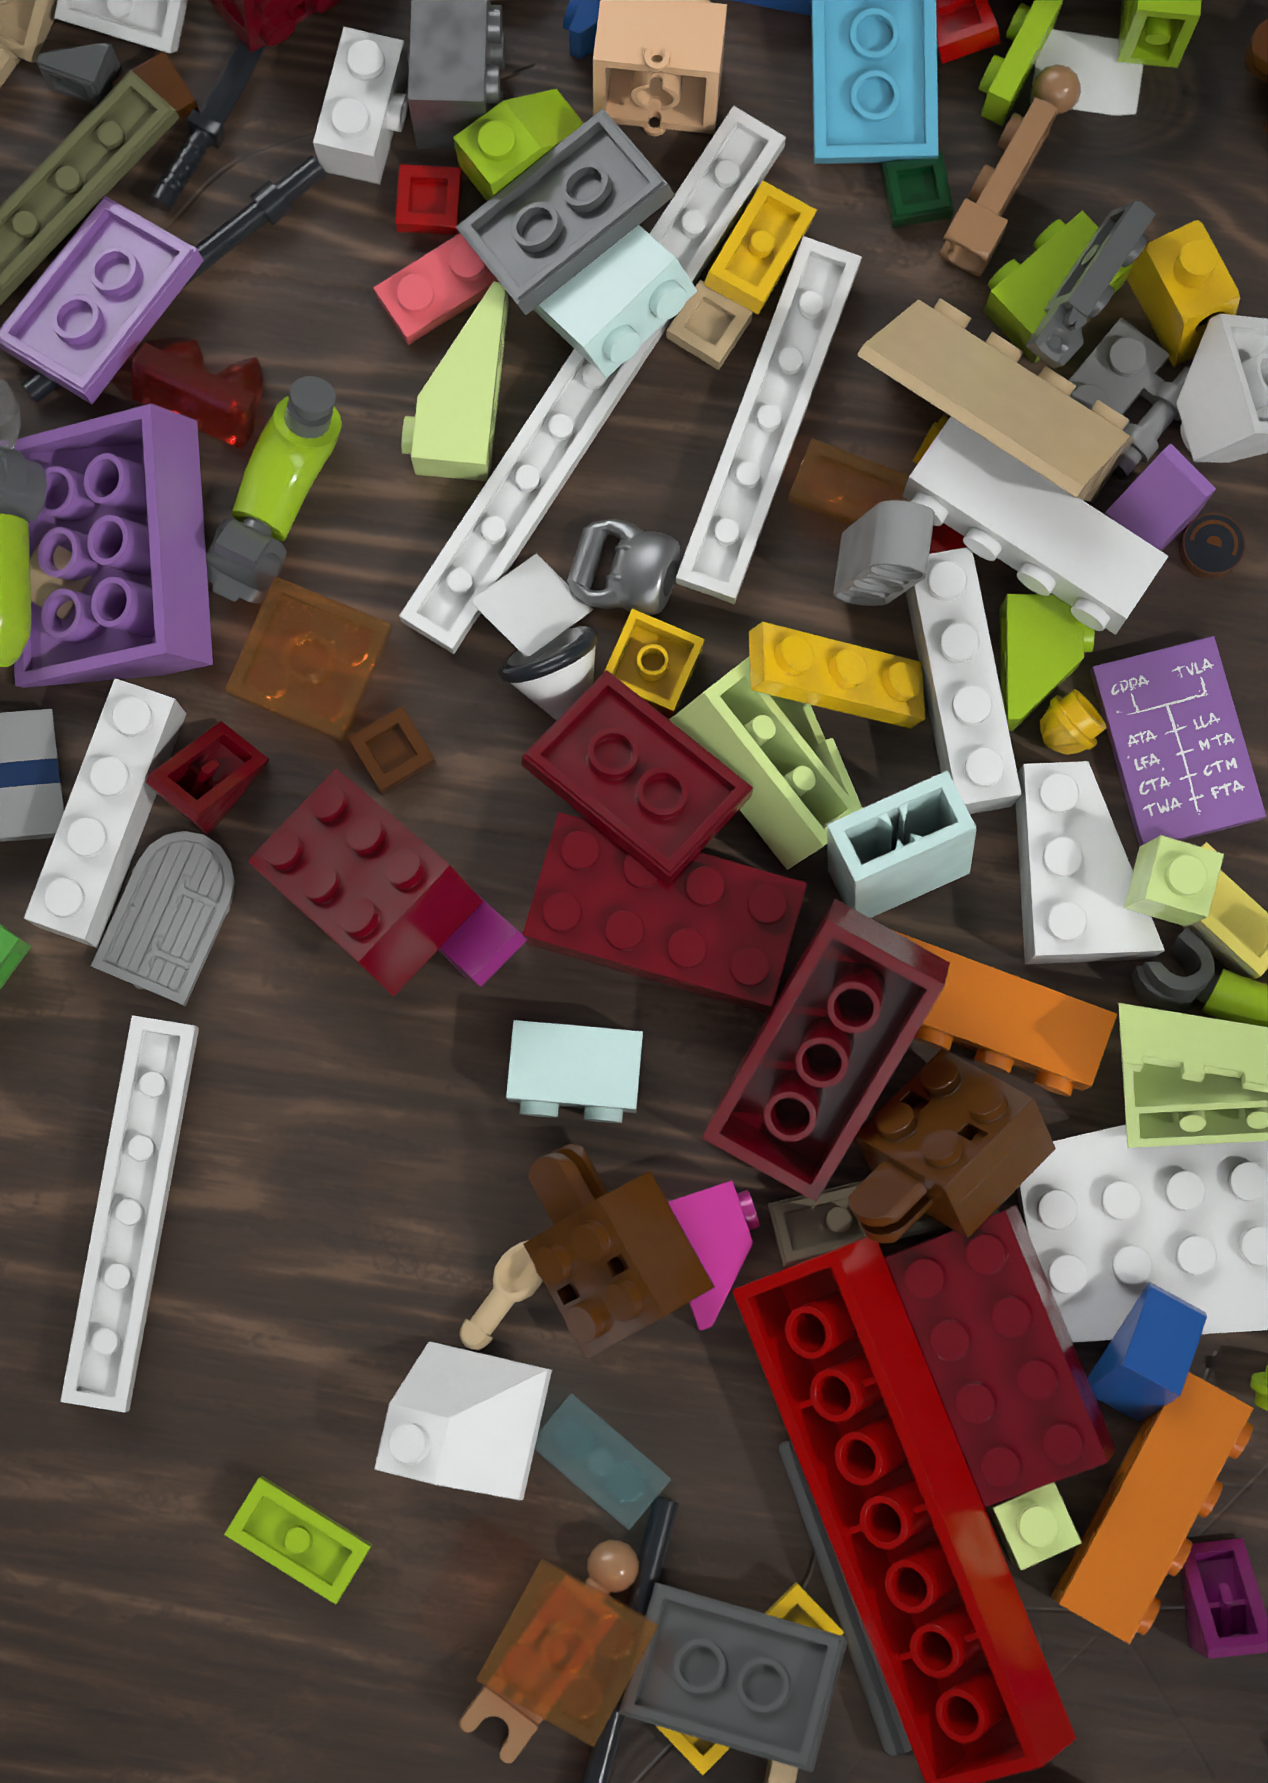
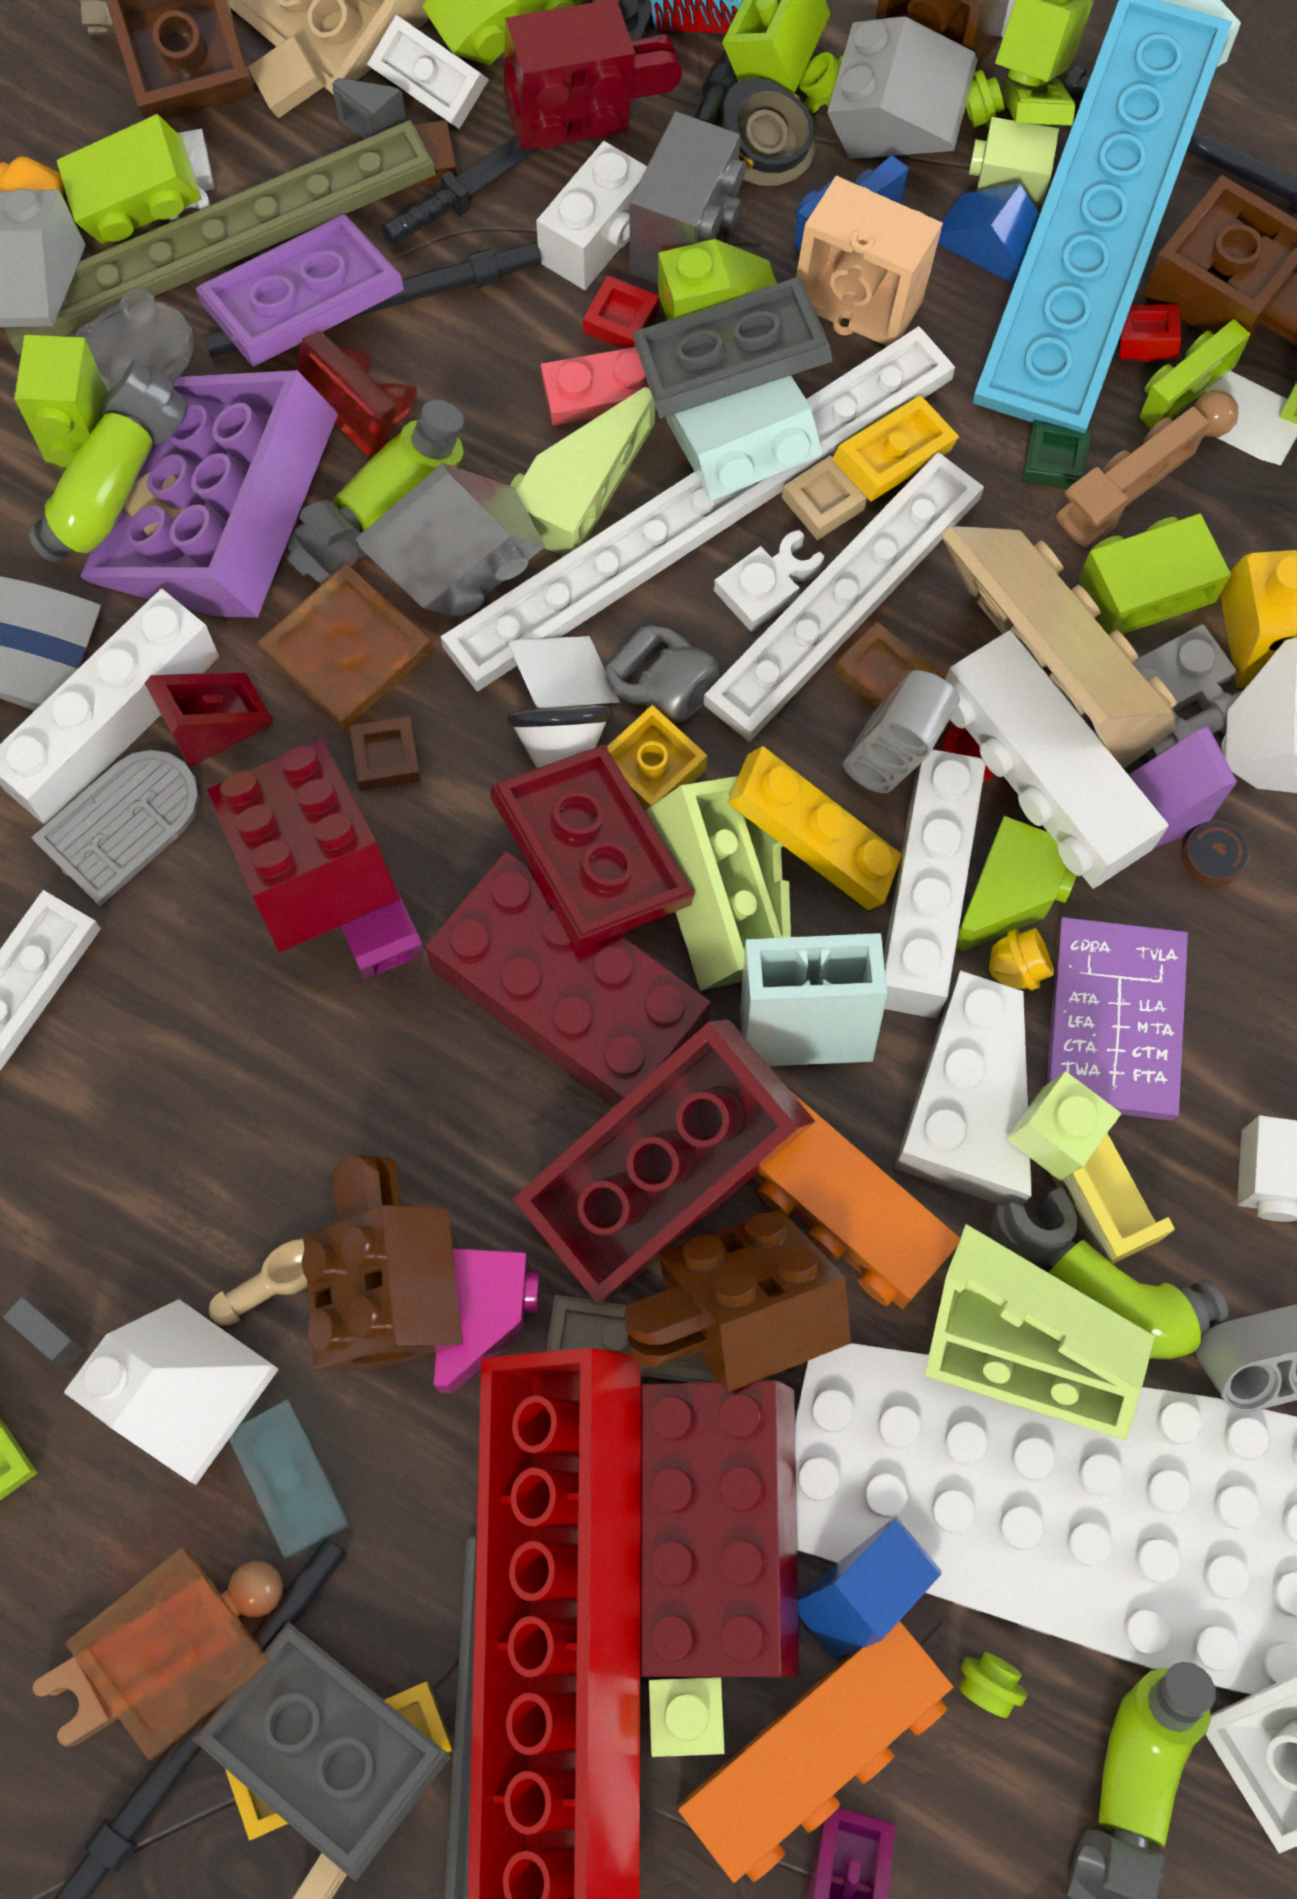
camera: 20 degrees right, 10 degrees down
(325, 1421) = (44, 1333): none -> dark grey tile
(380, 521) = (453, 540): none -> flat silver slope
(574, 1069) = (424, 1095): light aqua brick -> none
(684, 436) = (765, 585): none -> white plate
(1088, 285) = (1181, 573): dark grey hinge -> none

